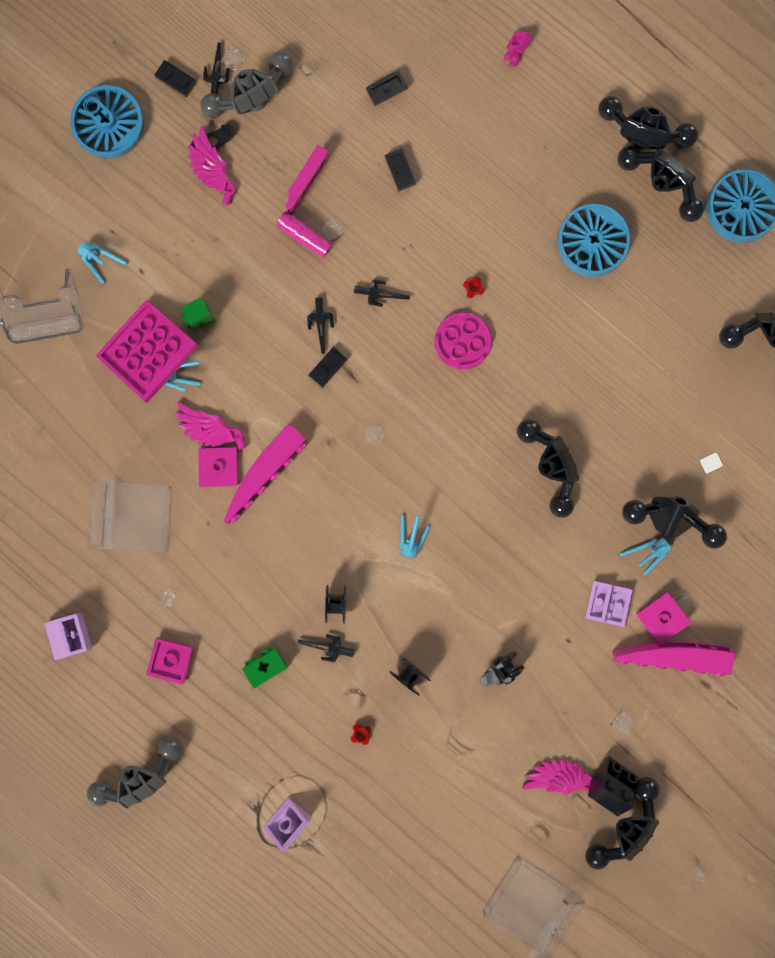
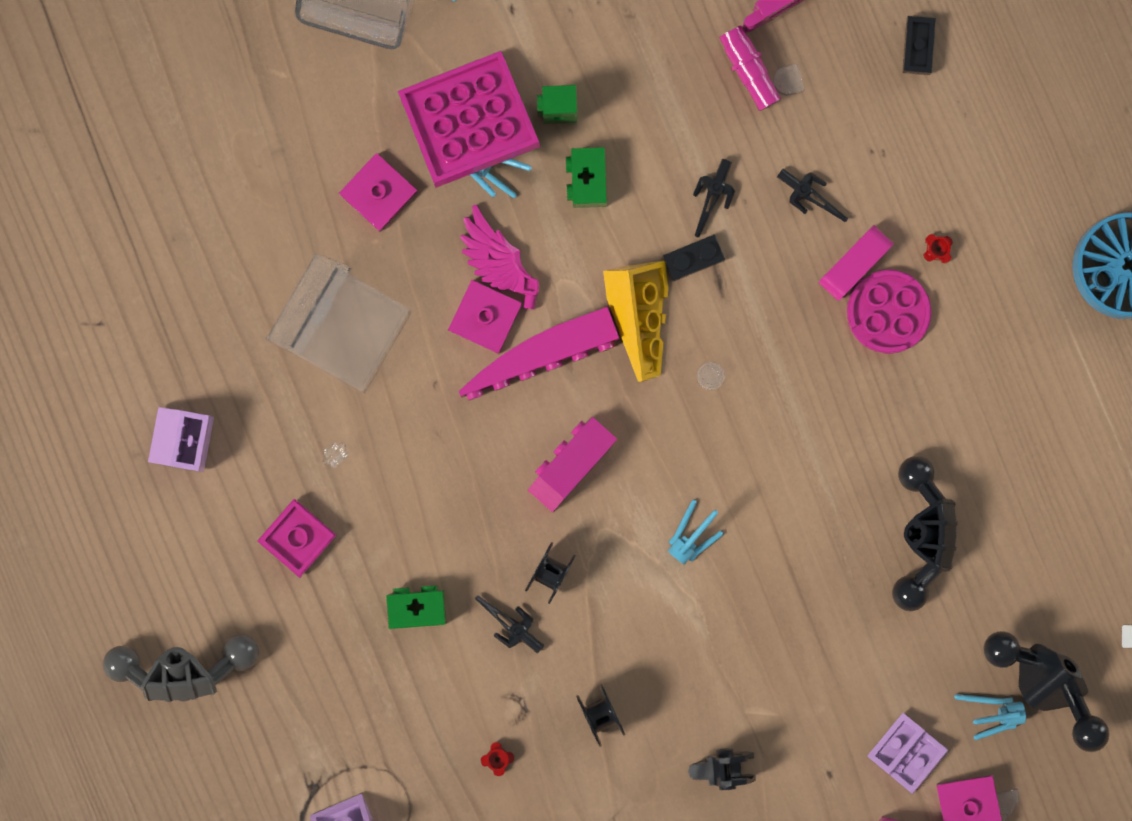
camera: 25 degrees right, 0 degrees up
(114, 423) = (378, 192): none -> dark pink plate
(233, 340) = (591, 161): none -> green brick
(306, 412) = (637, 304): none -> yellow wedge
(315, 530) = (571, 463): none -> dark pink wedge
(428, 321) = (856, 263): none -> dark pink beam

